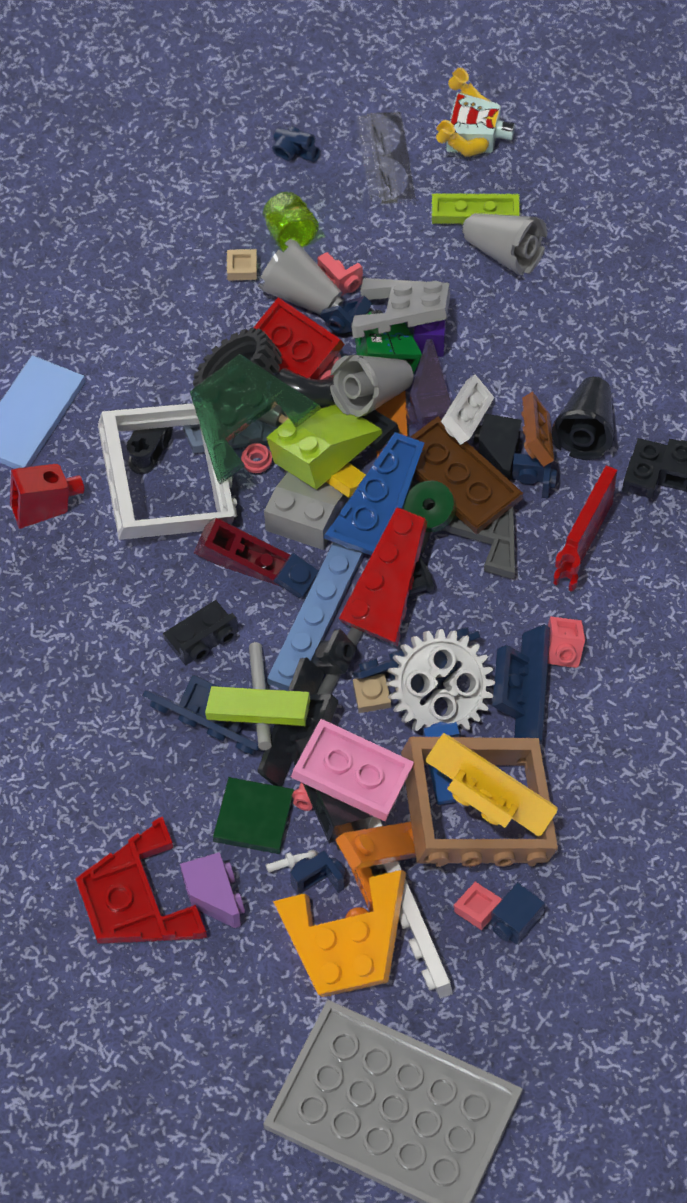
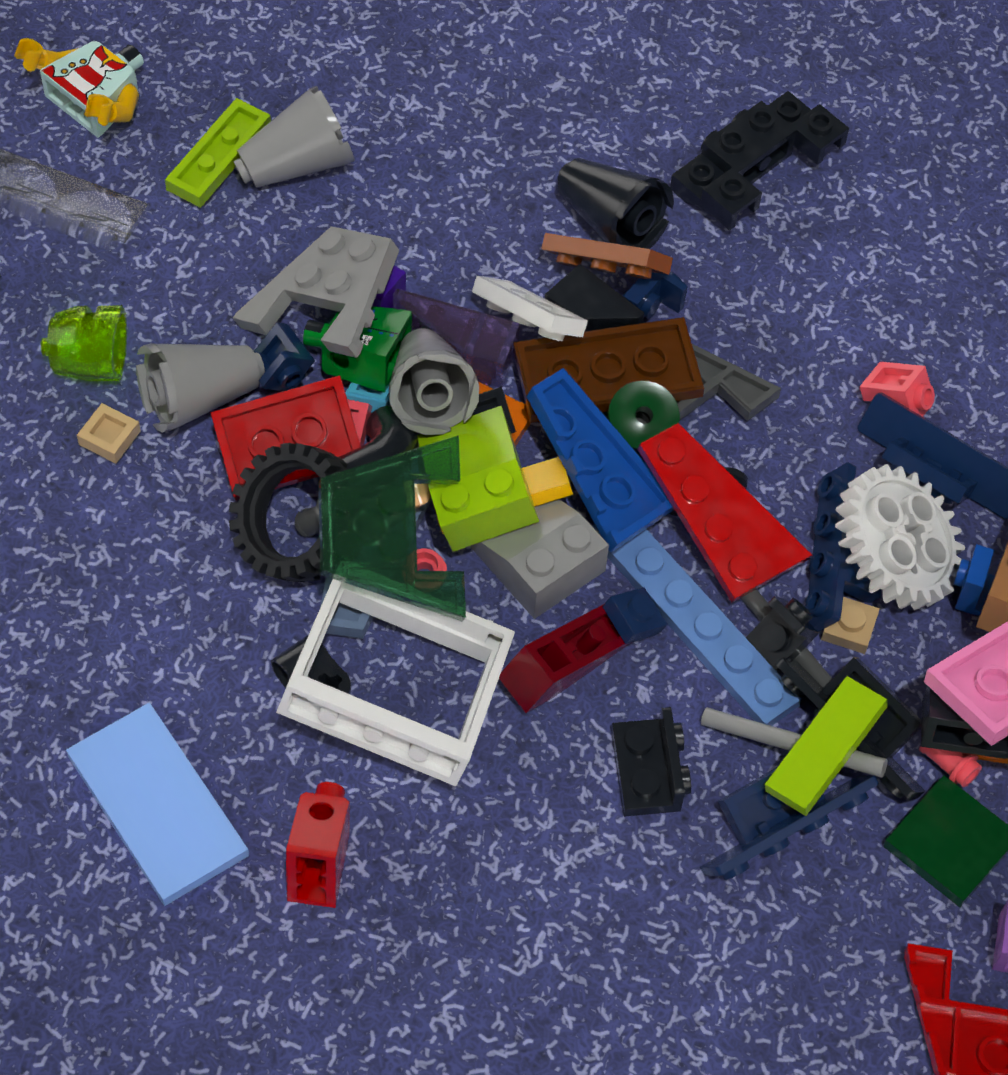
camera: 65 degrees left, 0 degrees up
(346, 280) = (214, 333): coral bracket -> none
(586, 528) = (776, 282): red tile -> none

